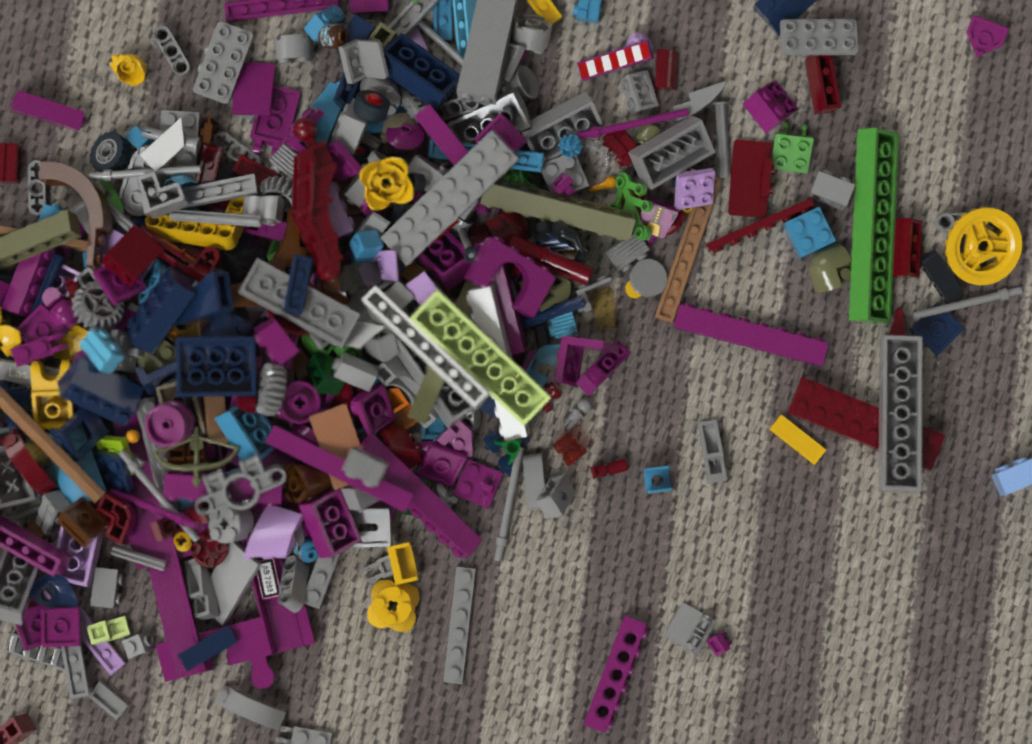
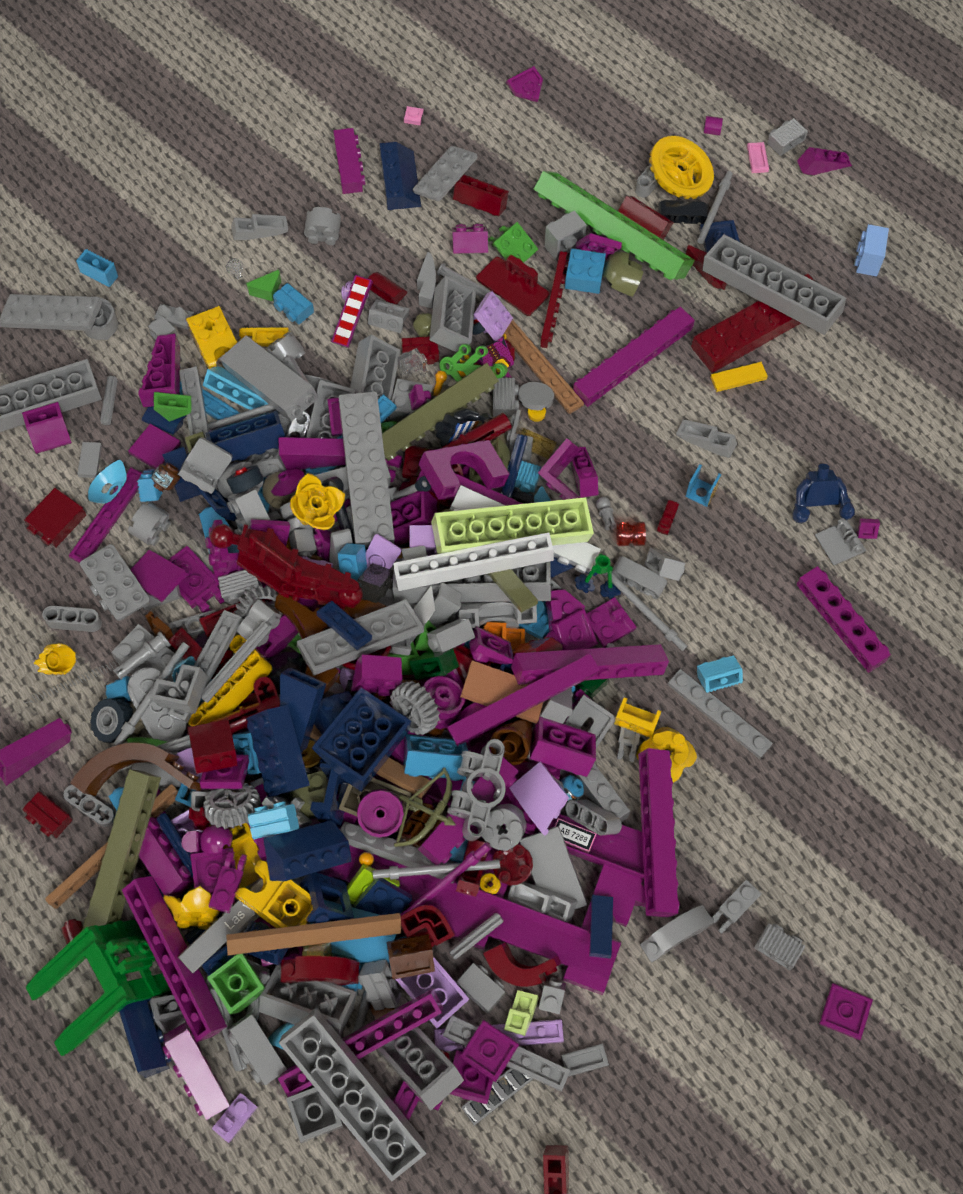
camera: 60 degrees left, 20 degrees down
(61, 592) = (454, 1026): dark blue piece -> none
(135, 608) = (513, 972): none -> dark red arch
(165, 146) = (144, 660): white sticker -> none
(246, 403) = (412, 734): dark red tile -> none
(311, 643) = (658, 833): none -> magenta brick
(365, 466) = (539, 671): light grey brick -> none
(491, 603) = (720, 673): none -> medium azure brick
(570, 145) = (392, 373): dark azure gear -> none
(595, 132) = (397, 350): magenta bar -> none
(725, 581) = (821, 489): none -> dark blue torso
(836, 225) = (598, 244): none -> magenta tile

